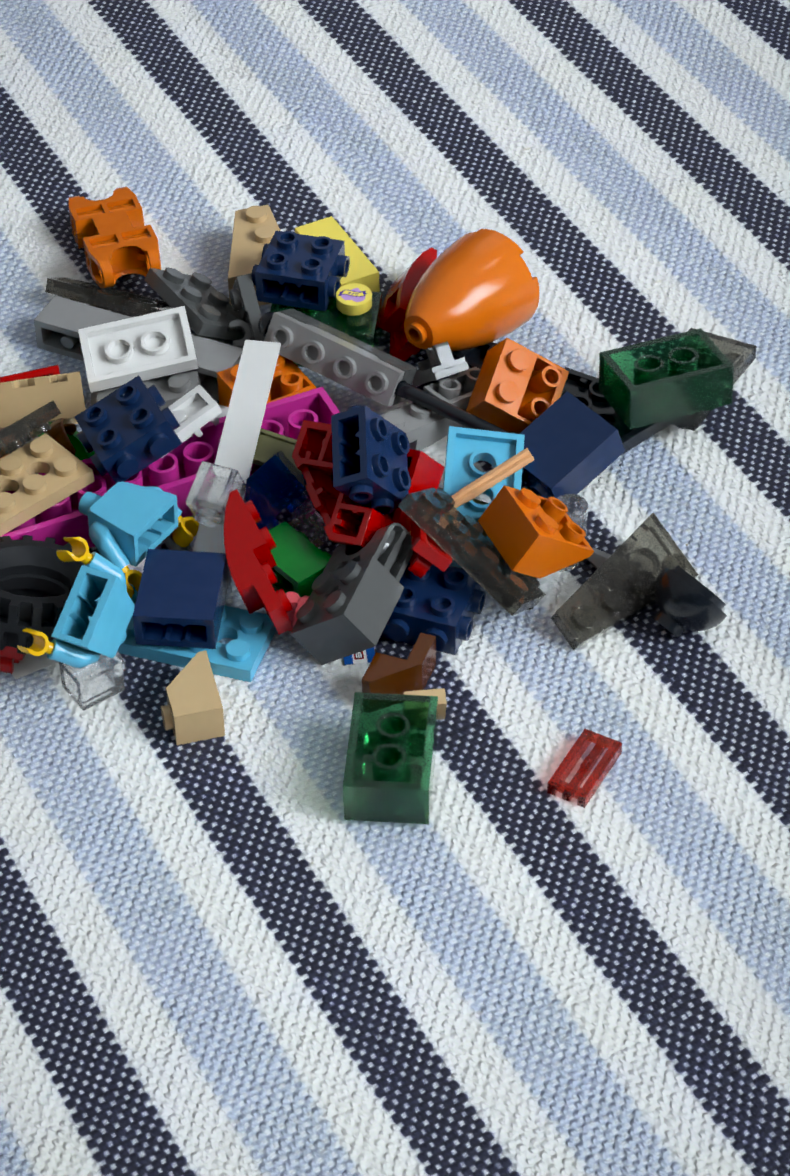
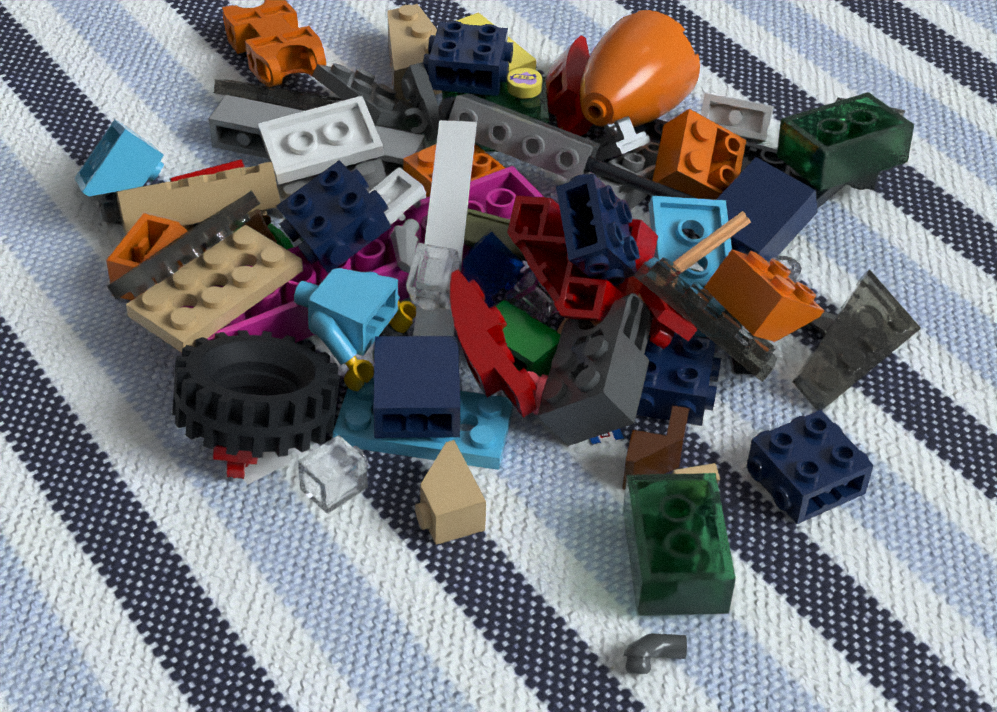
camera: 10 degrees left, 0 degrees up
(93, 614) = (334, 411): medium azure torso -> none
(193, 457) = (405, 243): none -> light grey bar
(350, 845) = (653, 646): none -> dark grey arm
(541, 698) = (808, 466): none -> dark blue brick
(572, 789) = (864, 562): clear red tile -> none
(573, 342) = (738, 115): none -> white plate
(685, 603) = (926, 356): black piece -> none

